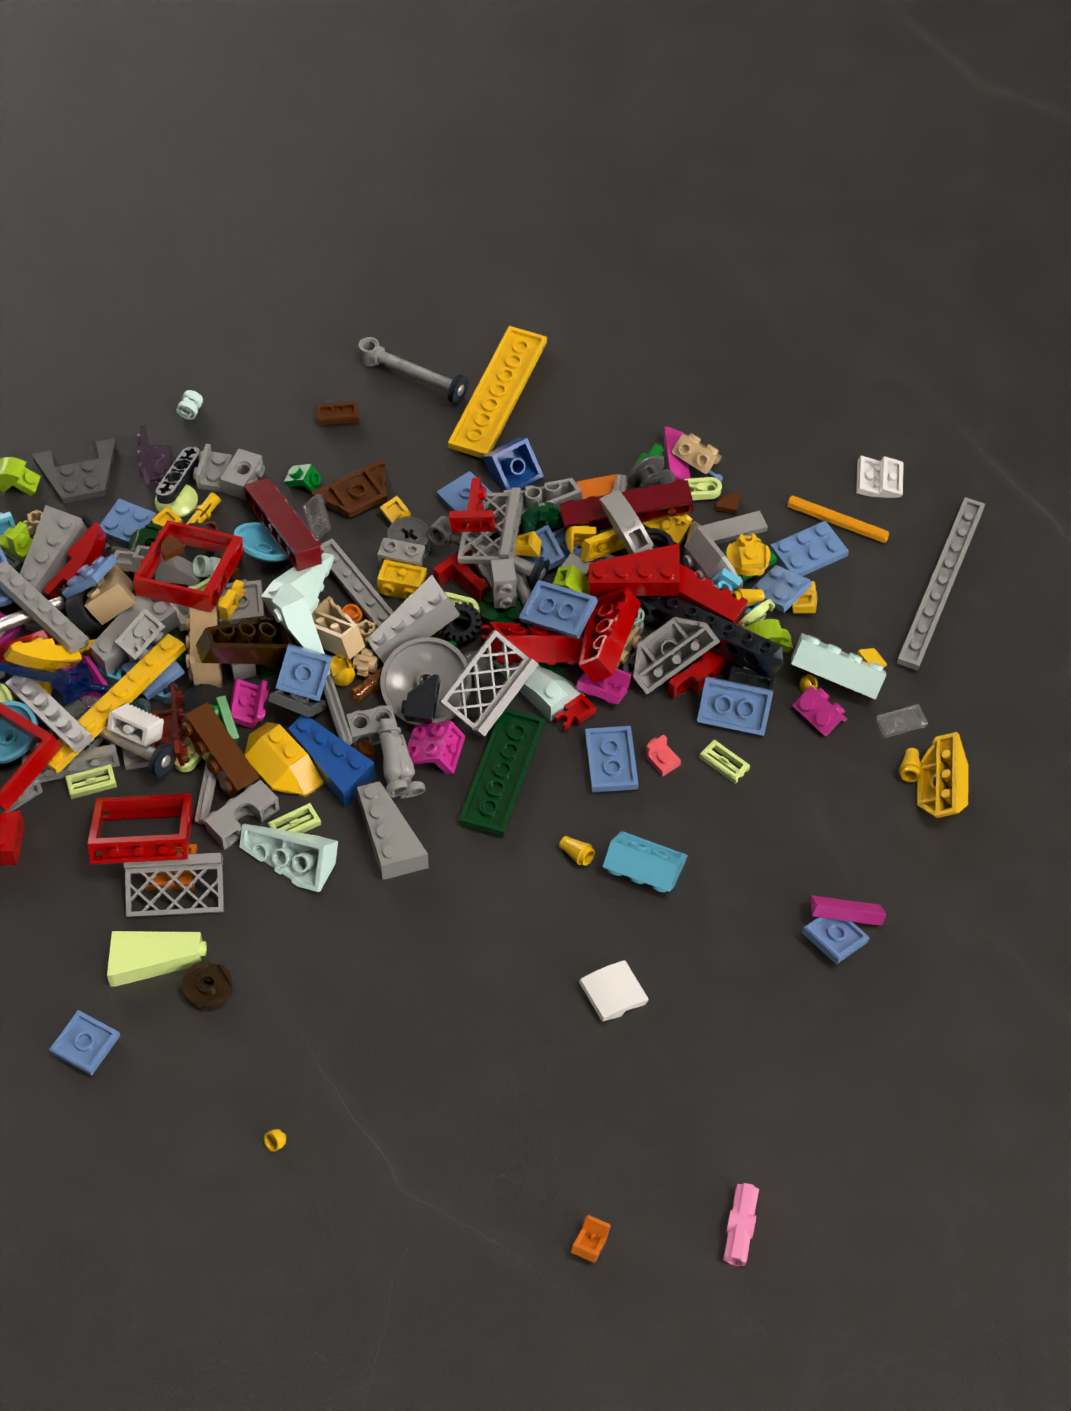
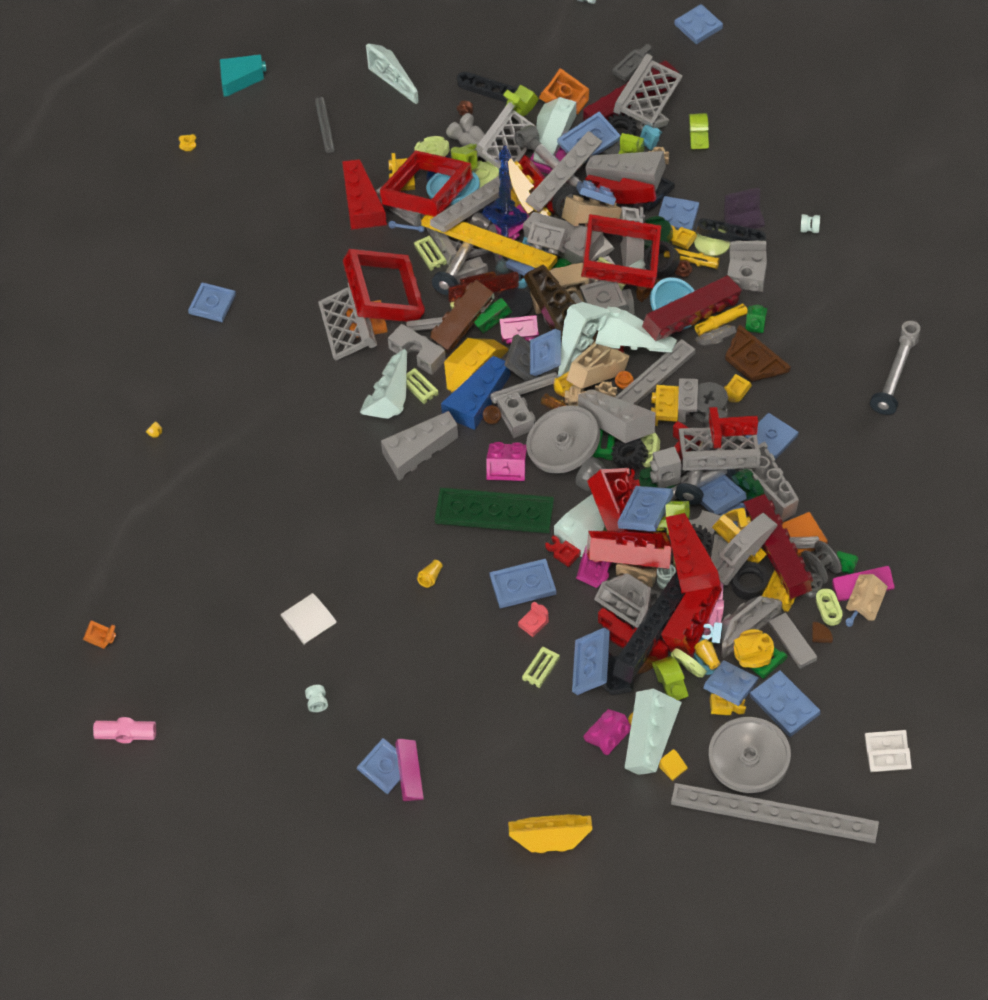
camera: 85 degrees right, 0 degrees up
(28, 816) = (392, 224): none -> medium blue hinge
(79, 479) = (715, 176): dark grey wing -> none
(135, 725) = (469, 257): white brick -> none
(151, 954) = (286, 321): yellowish green slope -> none
(171, 547) = (628, 231): reddish brown tile -> none
(212, 997) = (272, 370): dark brown plate -> none
(229, 603) = (593, 286): yellow plate -> none
(293, 501) = (716, 321): none -> yellow pin
(337, 413) = (834, 326): reddish brown plate -> none
(397, 762) = (481, 433): light grey piece -> none
(422, 701) = (538, 438): black slope -> none
(497, 392) = (896, 436): yellow plate -> none
(503, 696) = (555, 490): light grey fence -> none
(513, 464) = (812, 461): blue slope -> none
(528, 545) = (718, 482): yellow slope -> none
(644, 861) = (429, 620): medium azure slope -> none
(731, 995) = (316, 698): none -> light aqua wheel
(838, 519) = (827, 721): light orange axle -> none
(875, 586) = (749, 754): none -> light grey dish
(901, 721) = (610, 794): clear plate -> none
(910, 767) = (564, 806): yellow cone -> none

